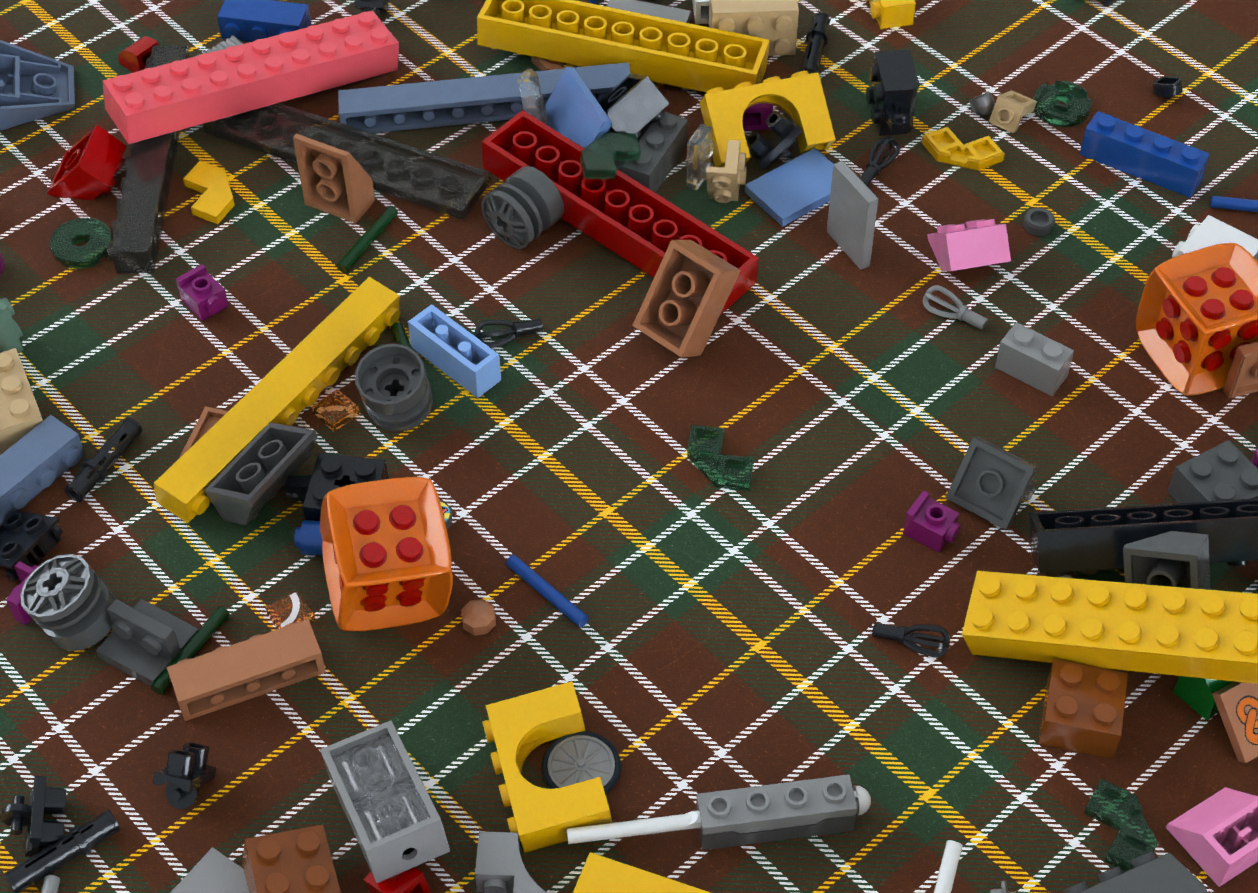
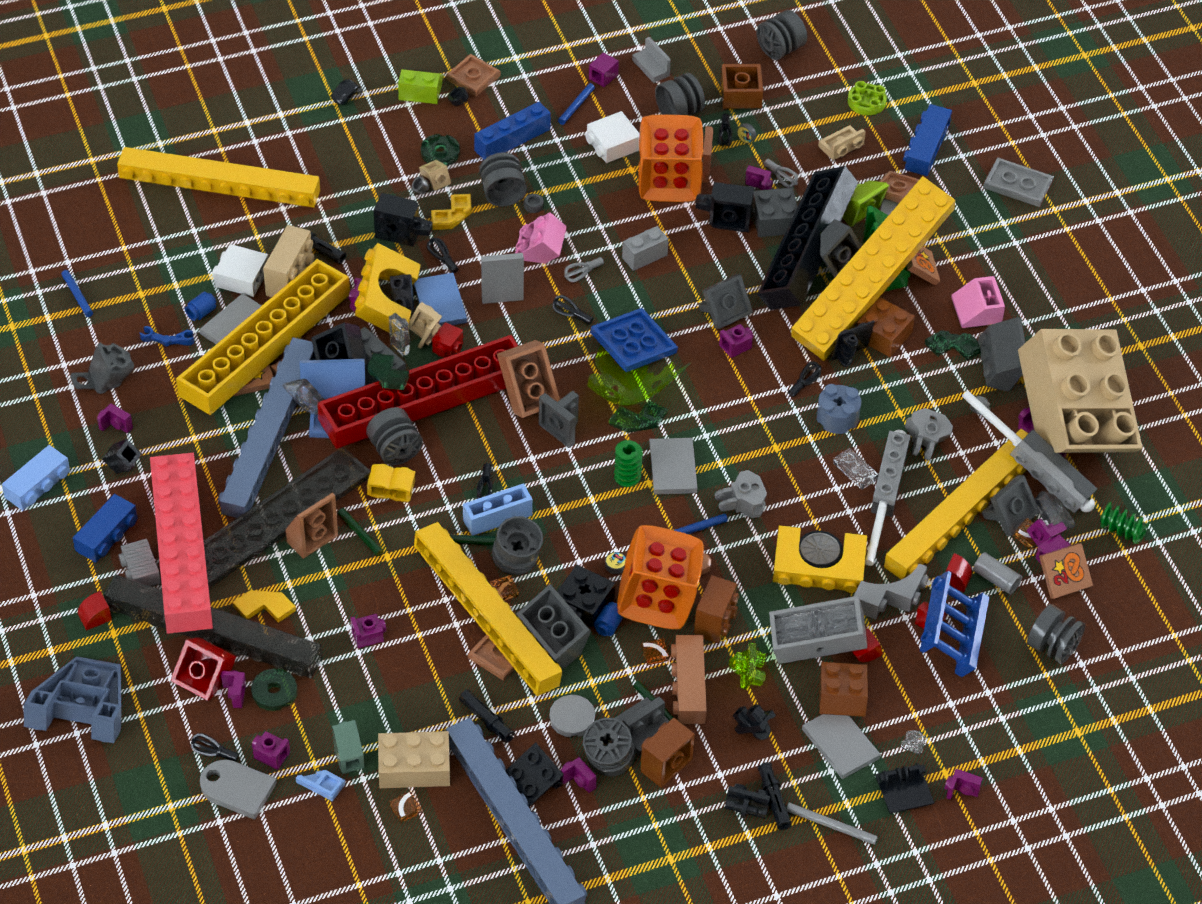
camera: 70 degrees left, 0 degrees up
(64, 206) = (236, 686): none -> magenta bracket
(84, 676) = (667, 752): none -> dark orange brick
(139, 554) = (571, 715): none -> light grey tile
(283, 743) = (745, 666): none -> clear neon green hips
(376, 653) = (716, 609): none -> dark orange brick
(457, 237) = (391, 482): none -> yellow brick
(605, 461) = (628, 463): none -> green piece
(624, 625) = (744, 495): none -> light grey hinge
(648, 526) = (673, 466): none -> light grey tile
(651, 363) = (560, 417): none -> dark grey bracket
(727, 211) = (447, 340): none -> red brick
(771, 758) = (855, 468): none -> clear plate
(789, 417) = (633, 385): none -> clear neon green piece
(851, 401) = (634, 339): none -> blue plate
(868, 328) = (576, 312): none -> black piece
(869, 696) = (838, 408): none -> sand blue brick
(887, 840) = (927, 430): none -> light grey hinge
(1008, 662) = (851, 341): none -> black hinge
(1041, 166) = (502, 179): none -> dark grey wheel
(1155, 45) = (420, 86): none -> lime slope
(1180, 422) = (728, 206): none -> black hinge
(1221, 91) = (473, 75): none -> nougat tile

